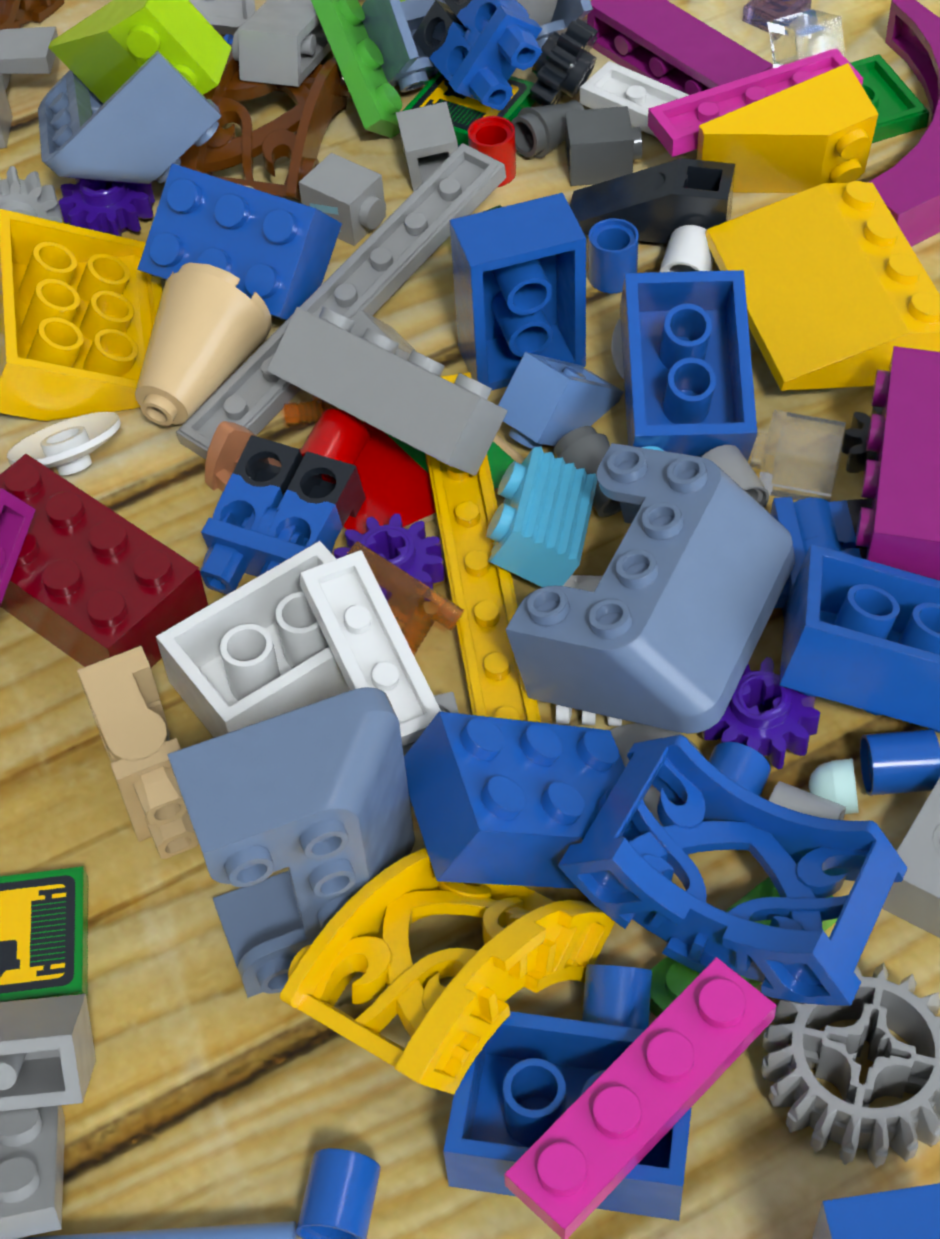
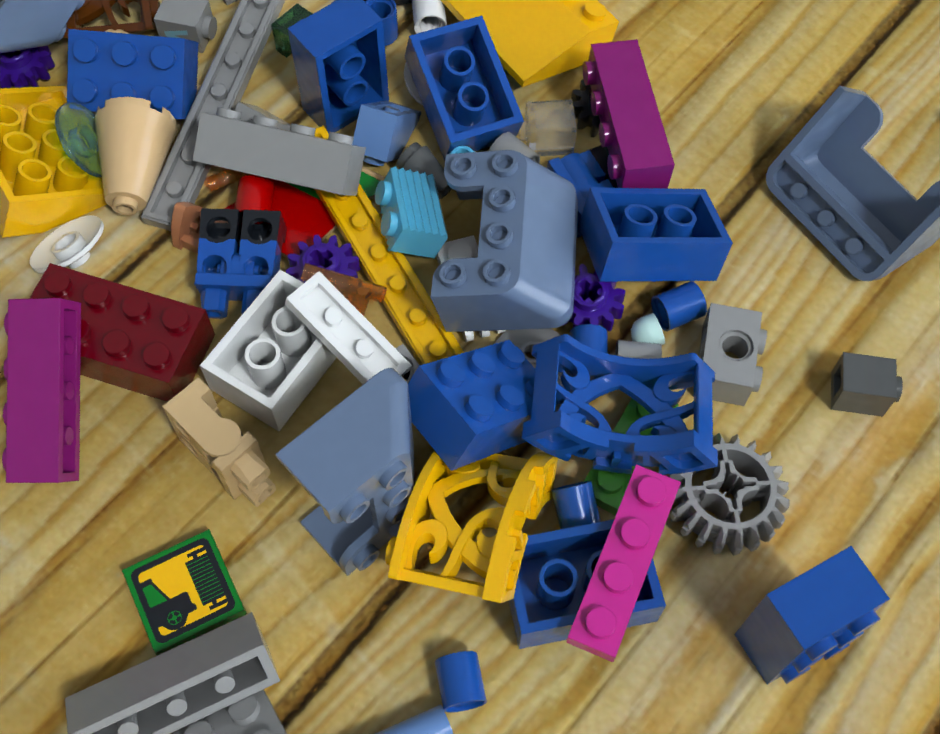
camera: 25 degrees left, 10 degrees up
(131, 303) = (78, 136): none -> clear light blue dish

